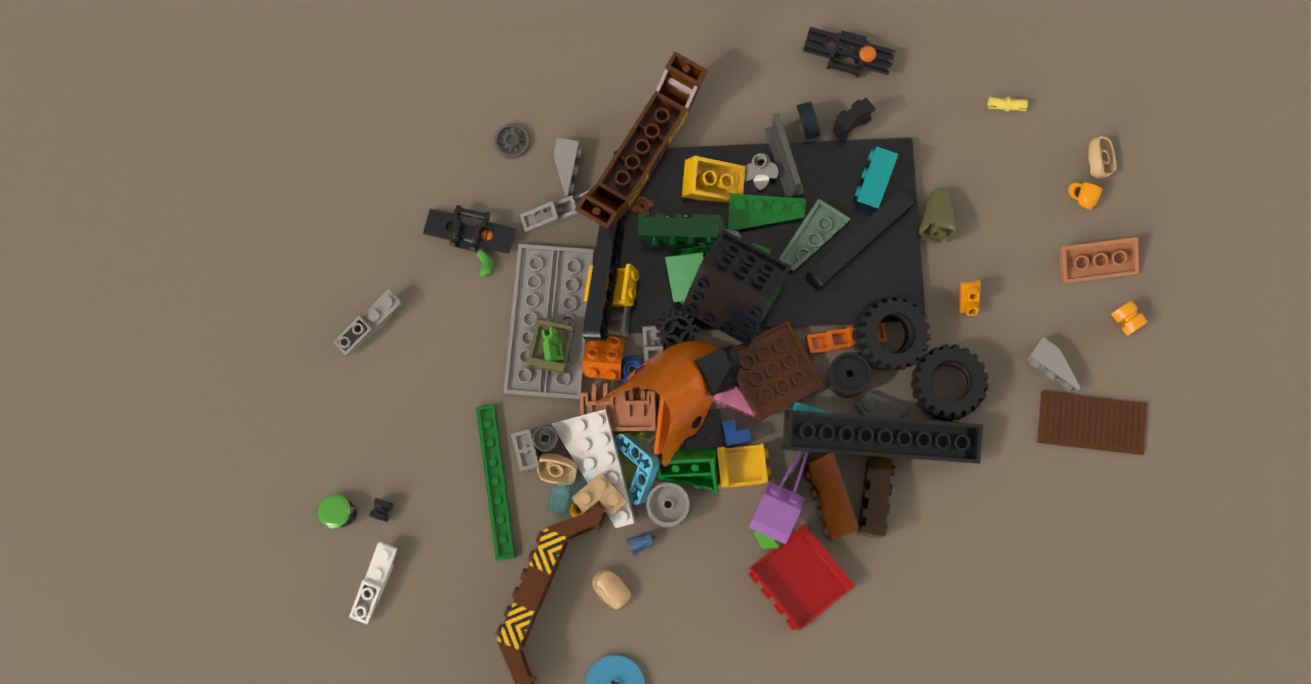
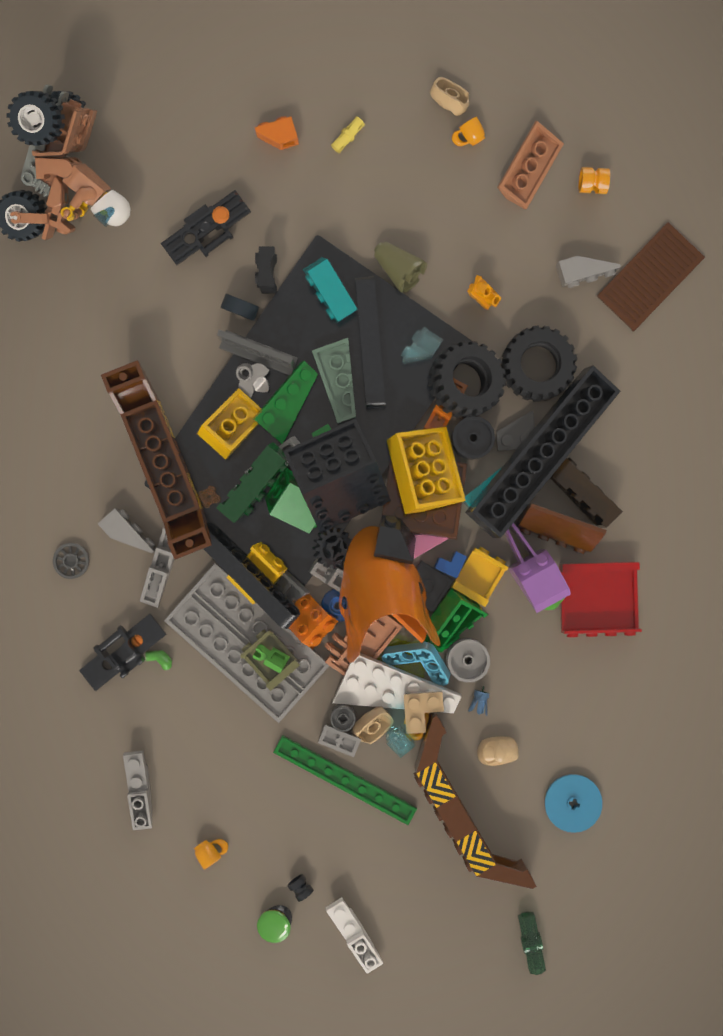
camera: 65 degrees left, 10 degrees up
(355, 416) = (208, 854): none -> light orange piece
(794, 354) = (425, 469): none -> yellow slope
(889, 282) = (423, 347): none -> clear light blue slope
(965, 52) = (278, 133): none -> orange slope

